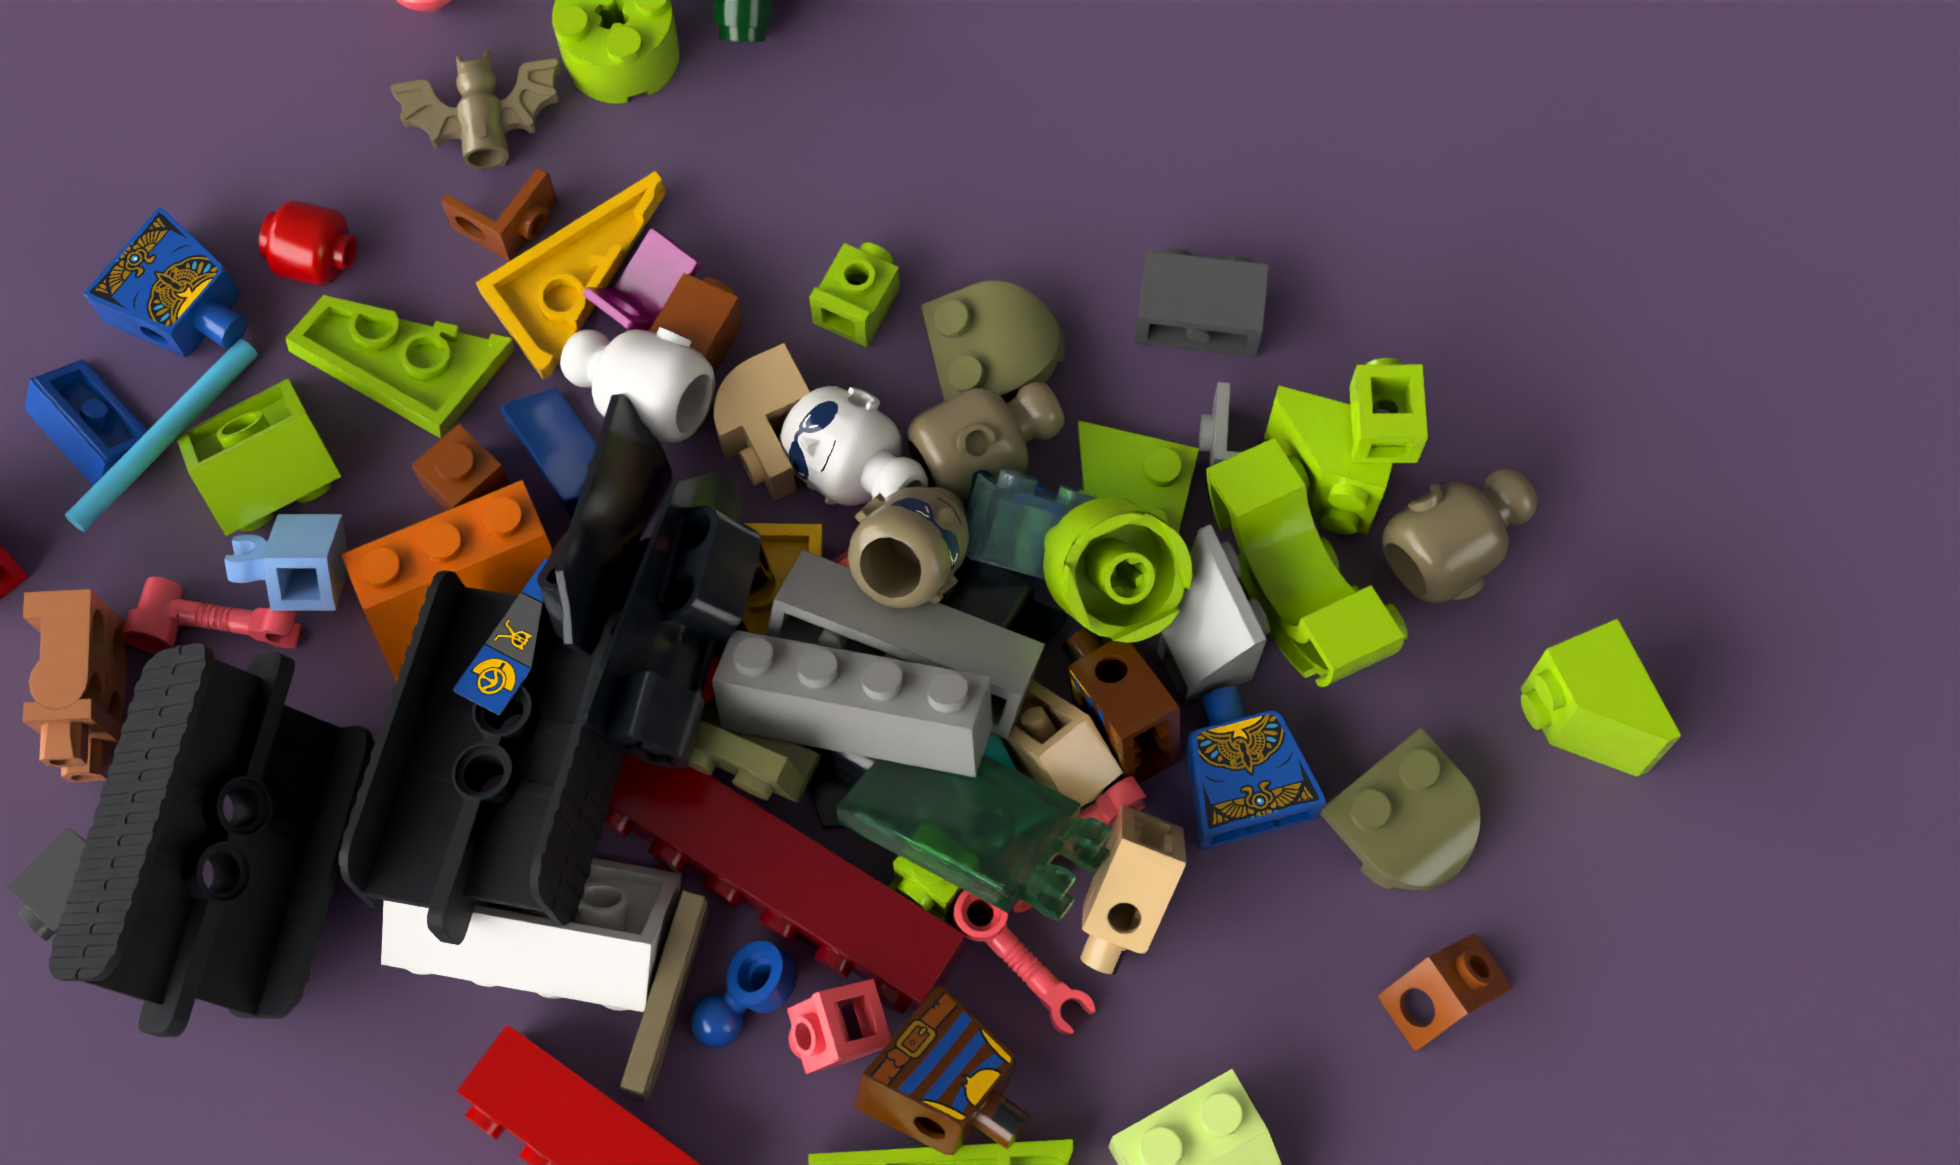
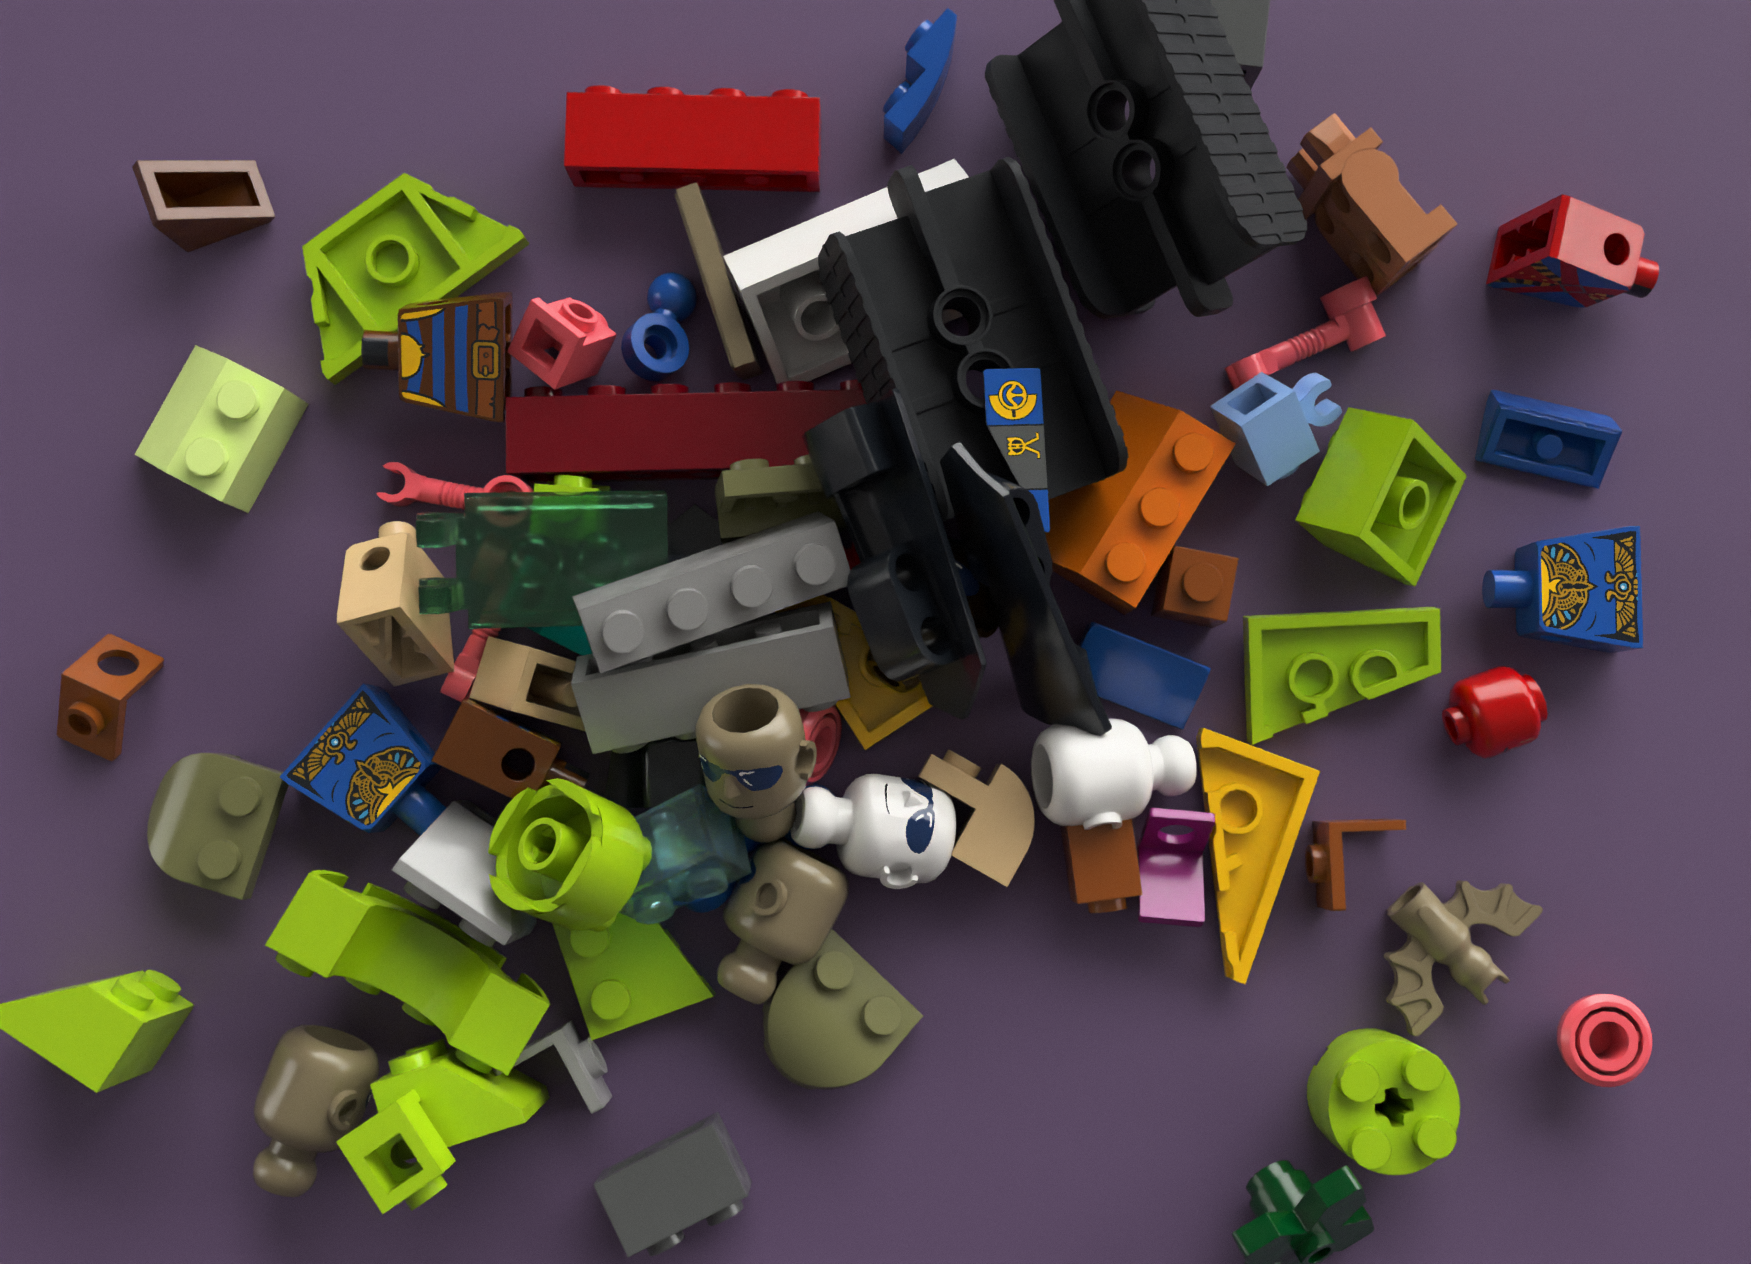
camera: 145 degrees right, 15 degrees up
(161, 435) = (1475, 463): medium azure bar -> none
(335, 1070) = (927, 68): none -> blue slope
(856, 309) = (983, 965): lime brick -> none

